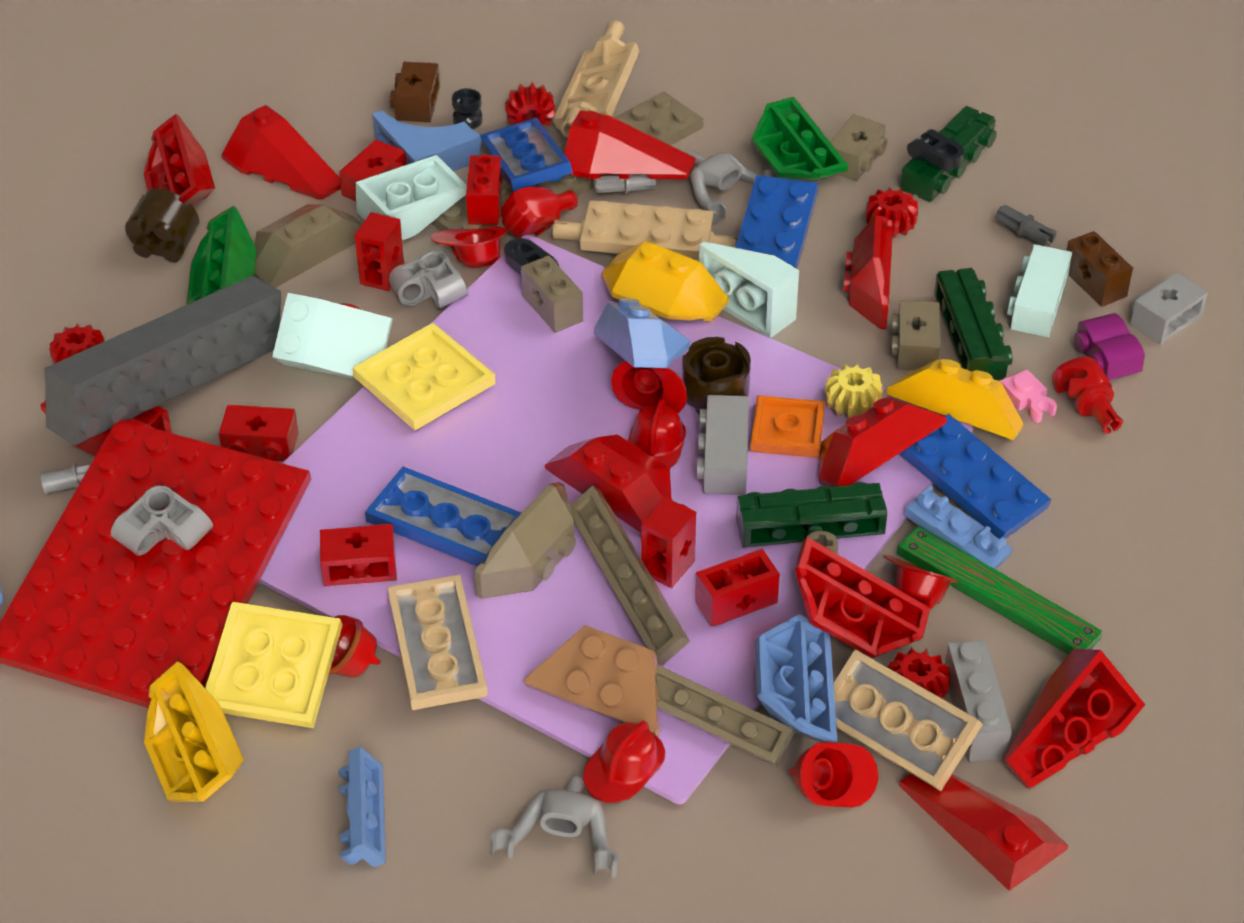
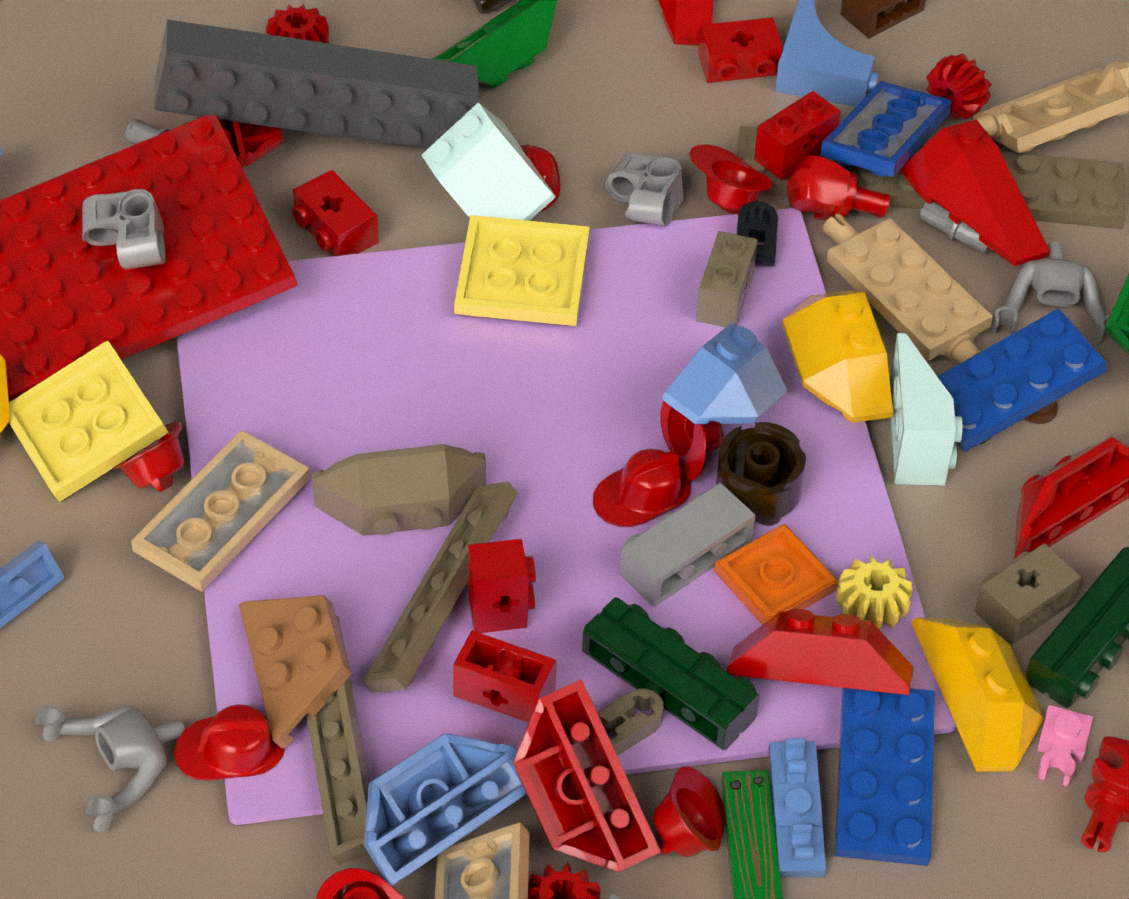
camera: 45 degrees right, 5 degrees up
(302, 242) = (601, 71): dark tan wedge -> none
(358, 555) = (259, 383): red brick -> none
(378, 250) = (634, 121): red brick -> none
(411, 193) = (728, 93): light aqua slope -> none
(441, 516) = (366, 397): blue piece -> none
(466, 107) = (906, 47): black wheel -> none
(620, 470) = (558, 498): red wedge -> none

